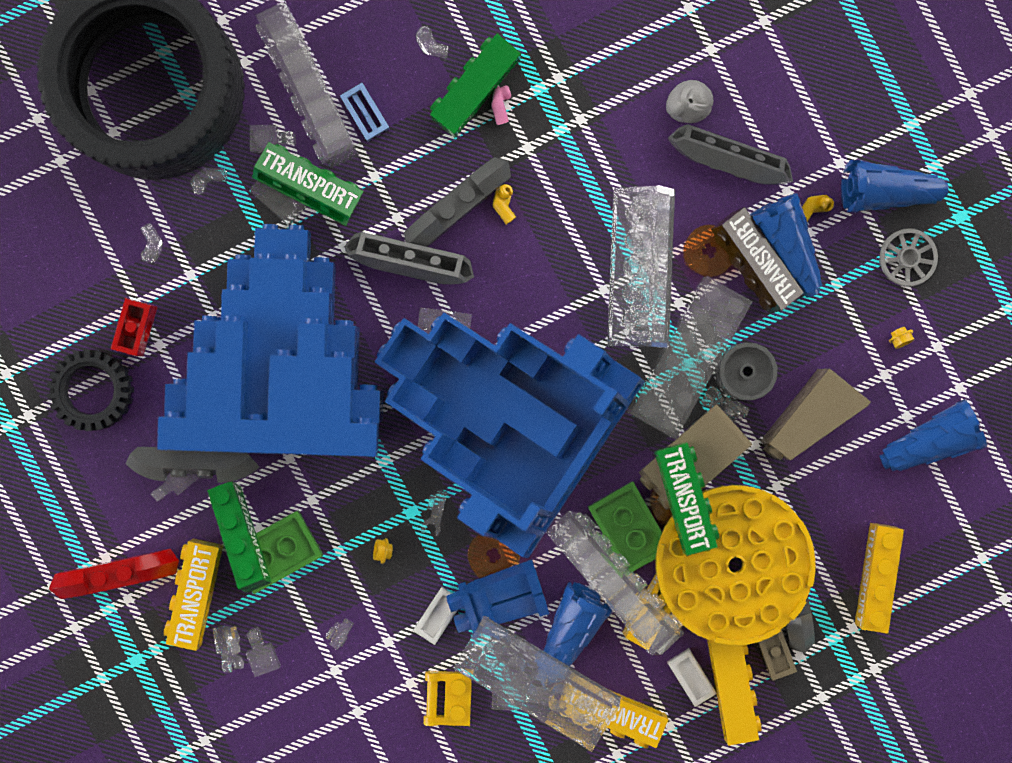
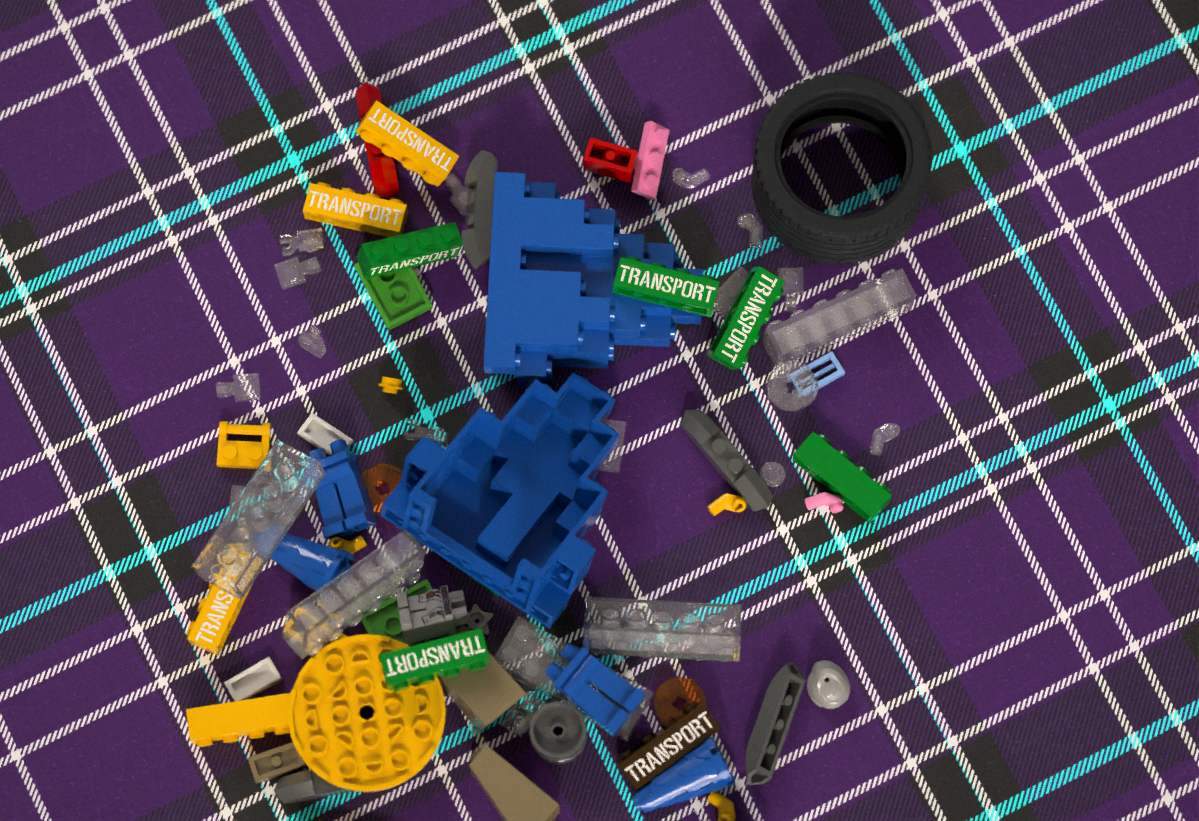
camera: 90 degrees right, 15 degrees down
(60, 384) = (553, 149): black tyre -> none
(120, 543) = (406, 144): none -> yellow brick
(132, 285) = (650, 160): none -> bright pink plate
(282, 264) = (666, 286): none -> green brick
(372, 123) = (779, 393): none -> clear plate
(388, 701) = (245, 388): none -> clear plate
(409, 259) = (672, 412): dark grey brick -> none
(471, 157) = (772, 474): none -> clear plate
(554, 589) = (349, 546): none -> yellow arm
(632, 450) = (484, 618): none -> light grey plate
(632, 503) = (431, 614): none -> light grey hips
(691, 342) = (587, 670): none -> blue hips

